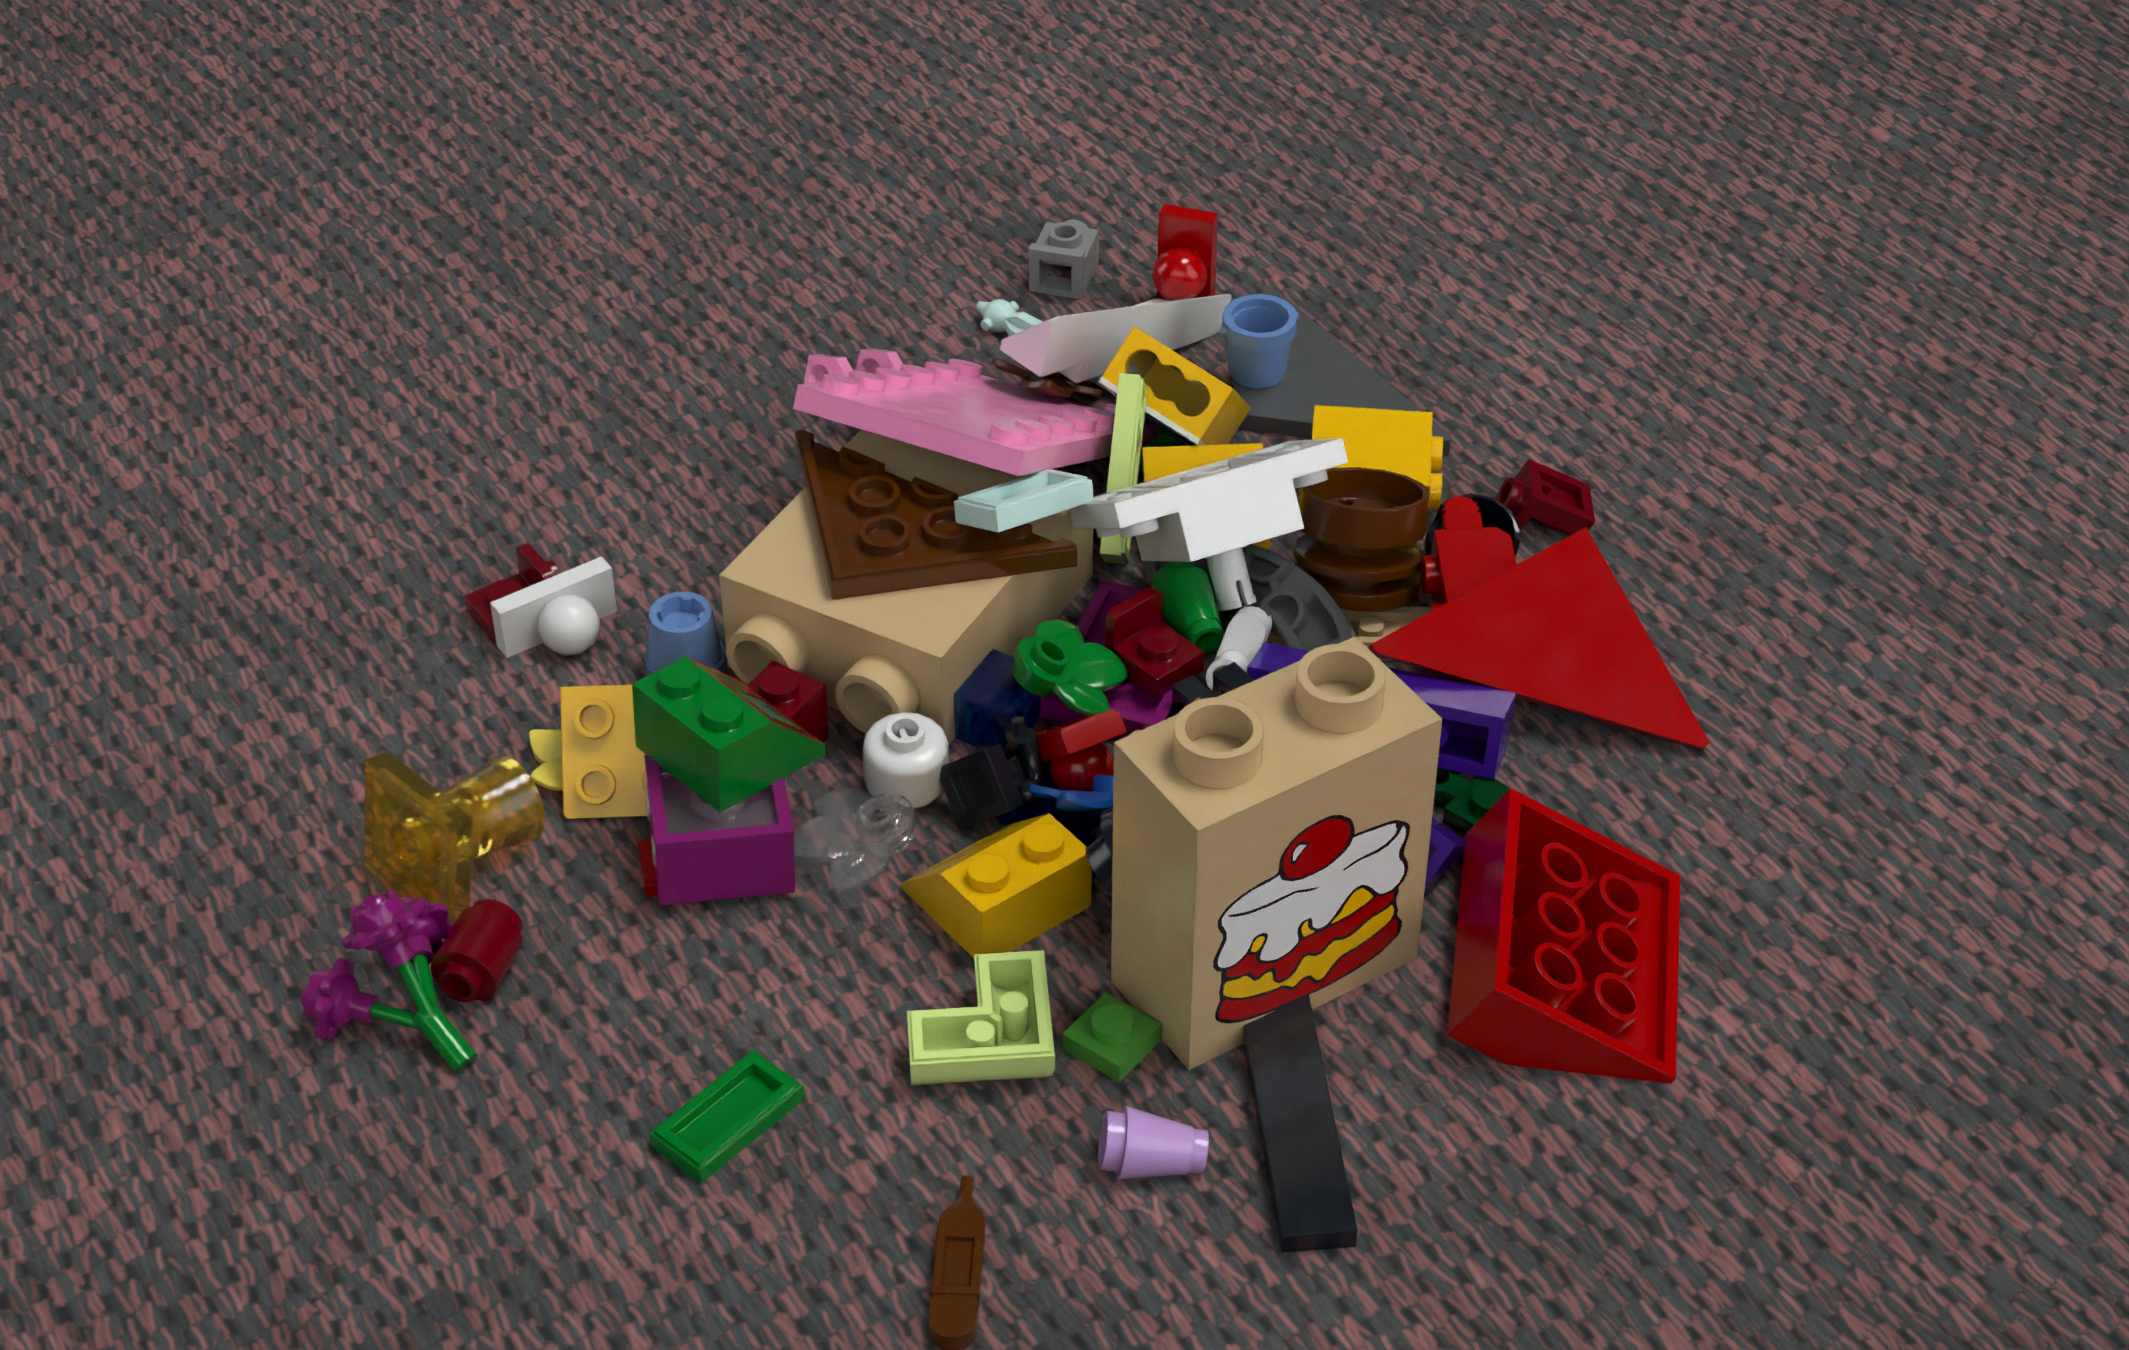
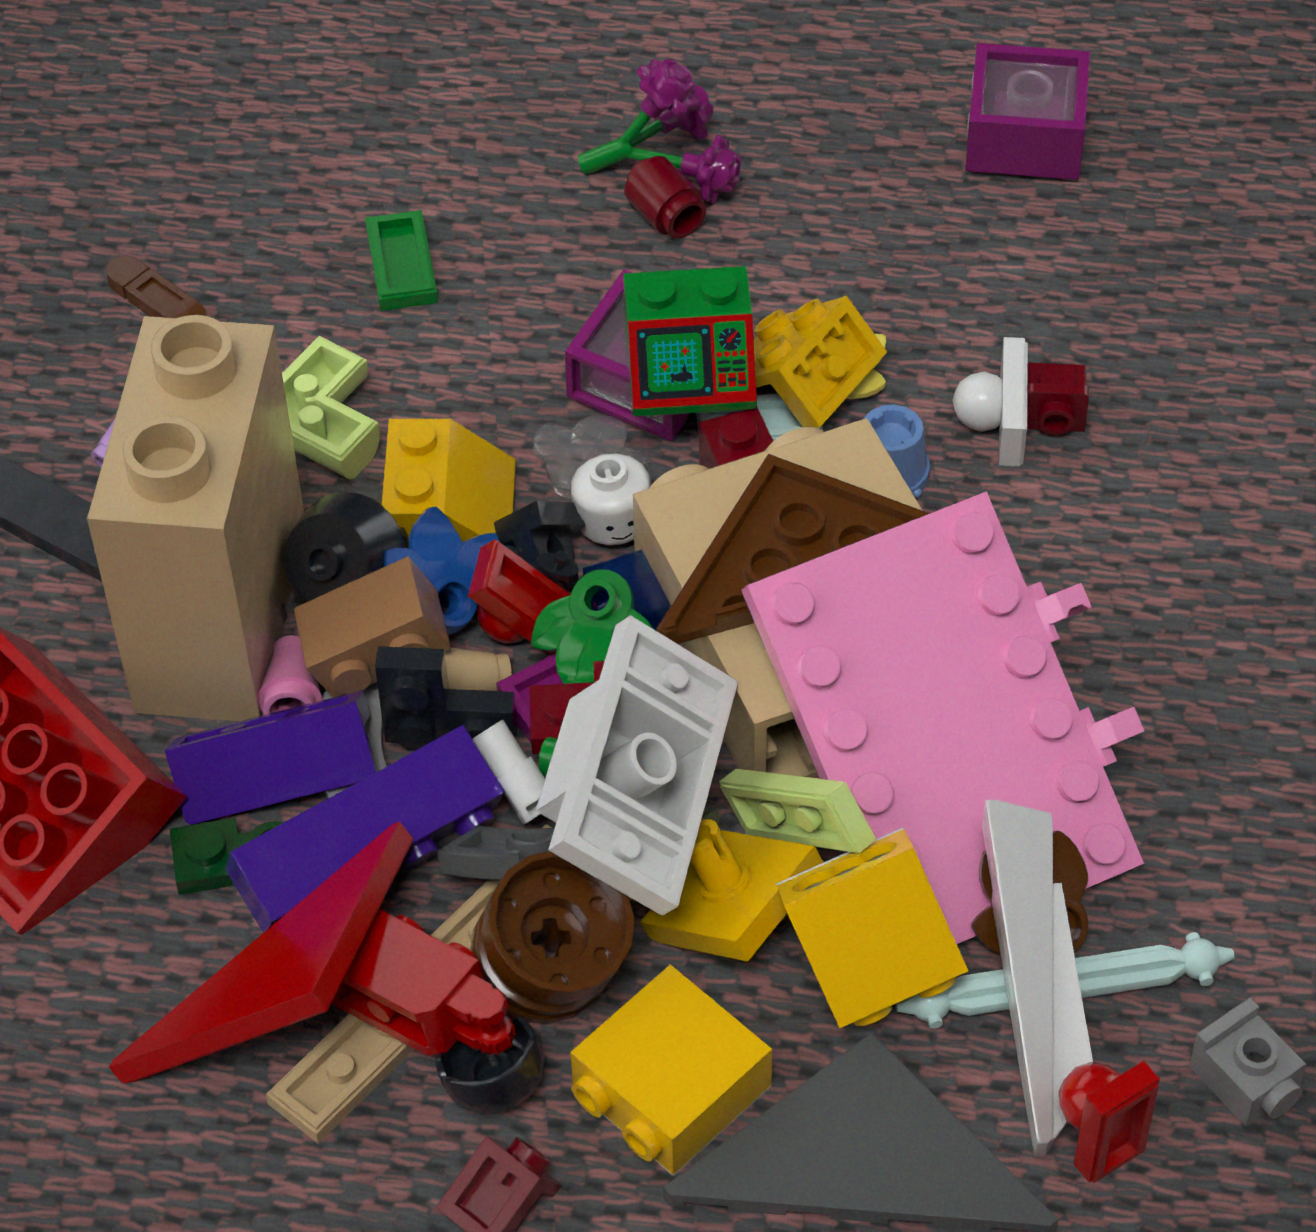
camera: 130 degrees right, 10 degrees up
(158, 748) = (1027, 111): none -> magenta piece
(426, 838) = (782, 194): clear yellow plant -> none
(1023, 500) = (723, 621): light aqua tile -> none
(1258, 339) = (916, 1075): medium blue piece -> none

